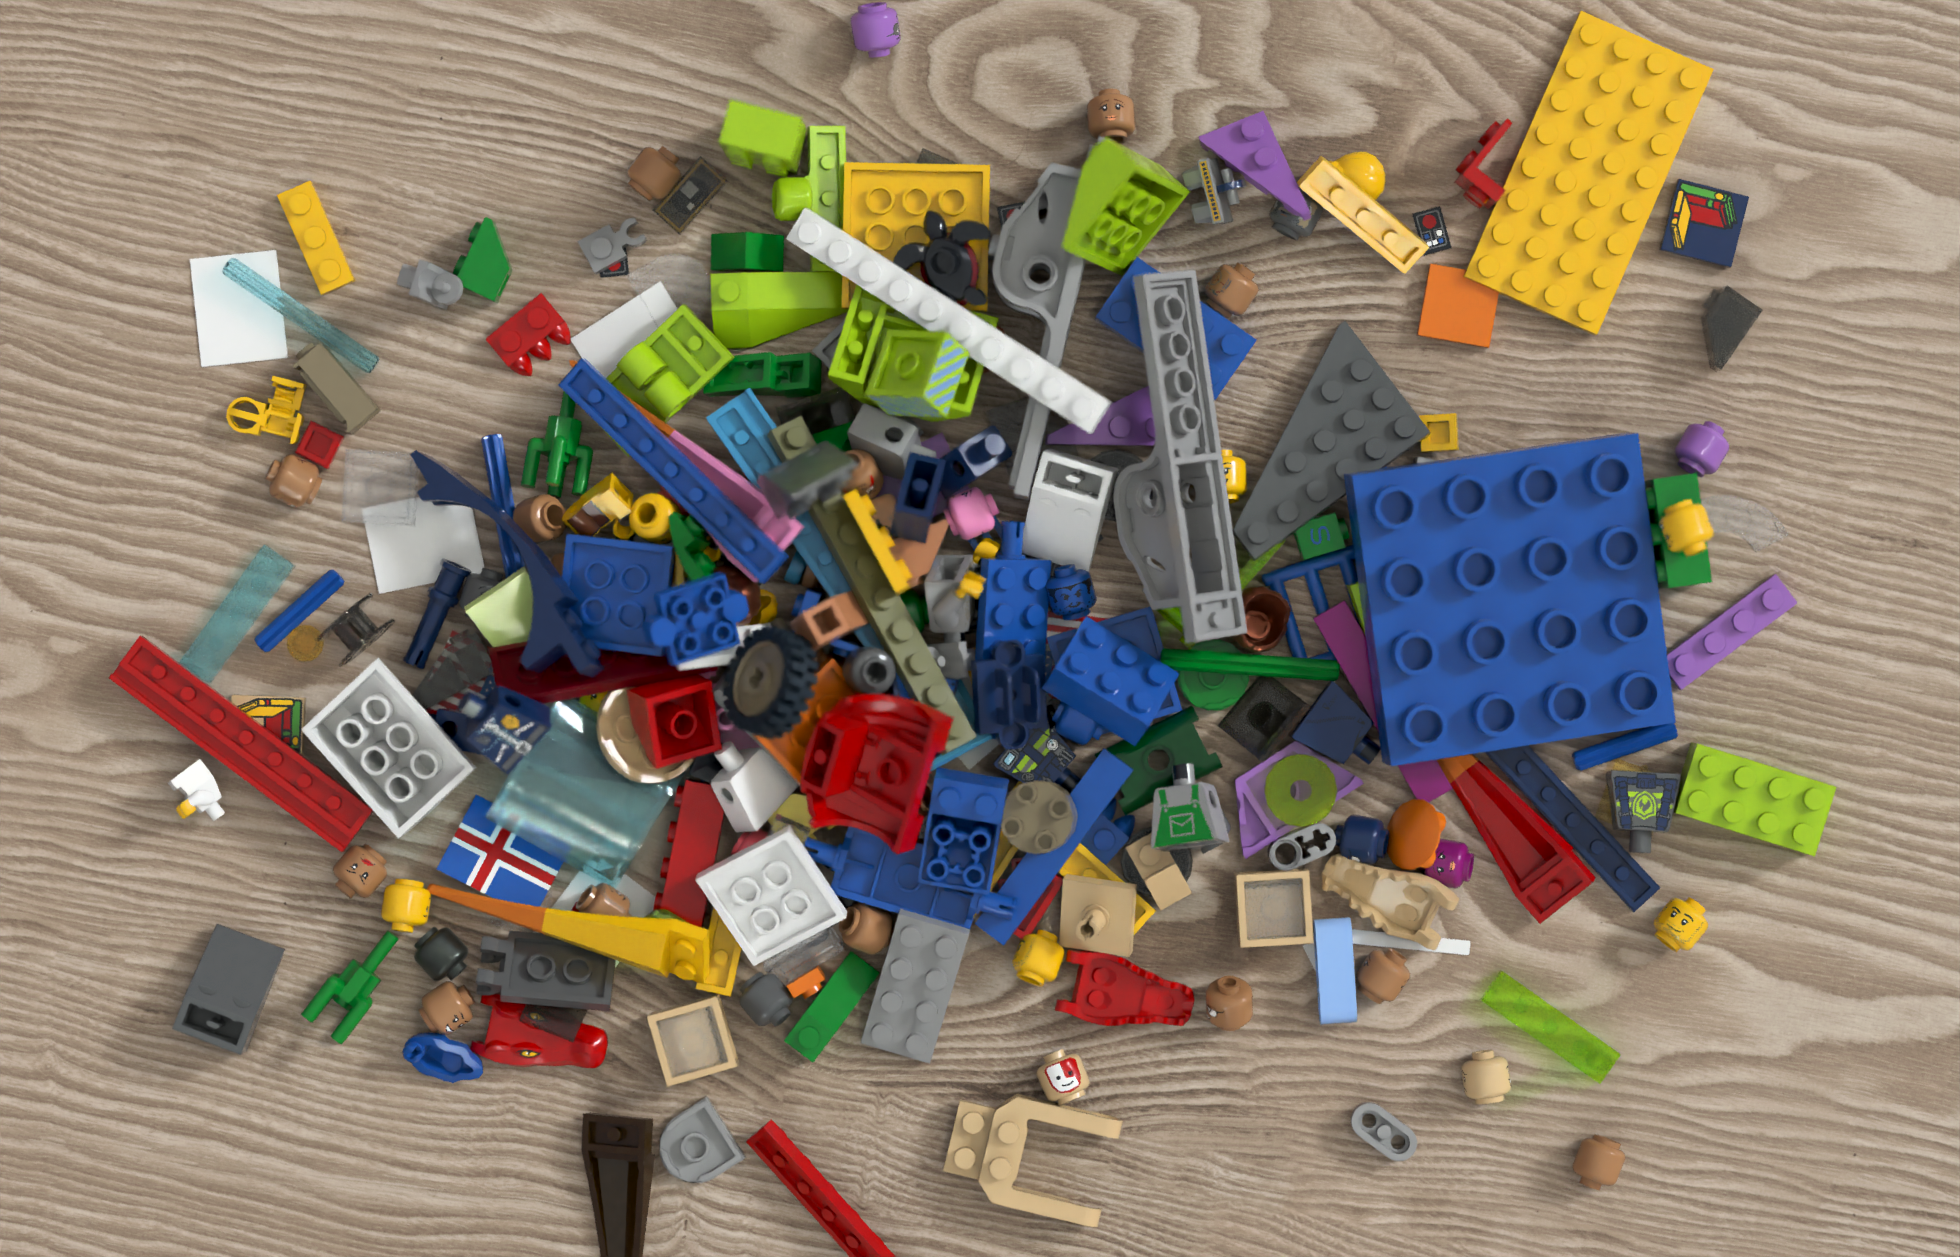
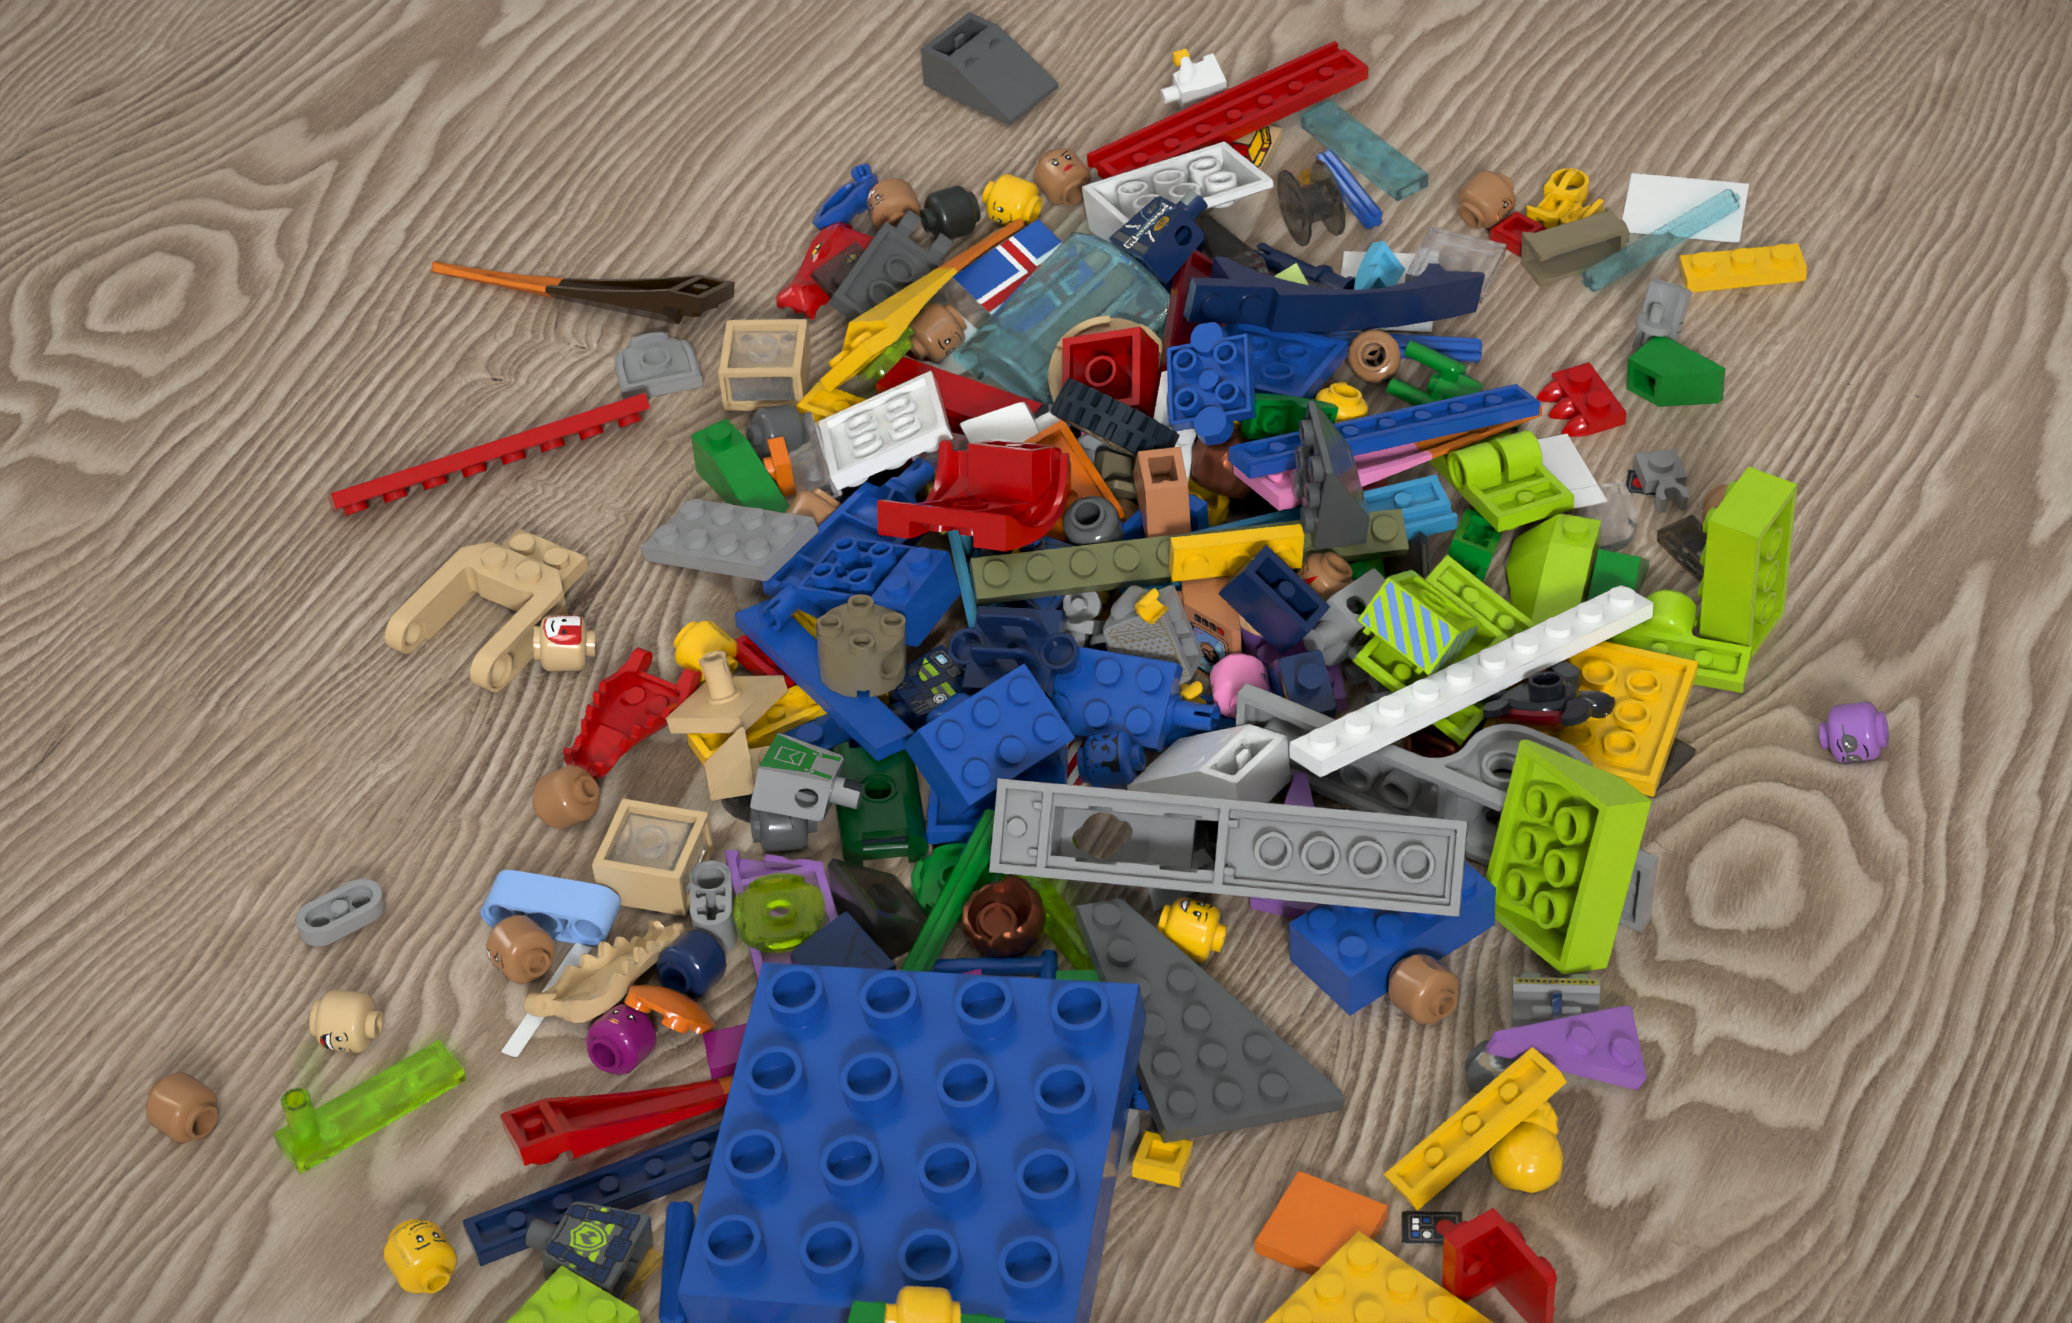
camera: 110 degrees right, 45 degrees down
(351, 989) = (942, 145): green plant -> none
(448, 546) = (1378, 268): none -> medium azure slope
(599, 507) = (1372, 383): yellow leg -> none
(1111, 116) = (1682, 922): medium nougat head -> none

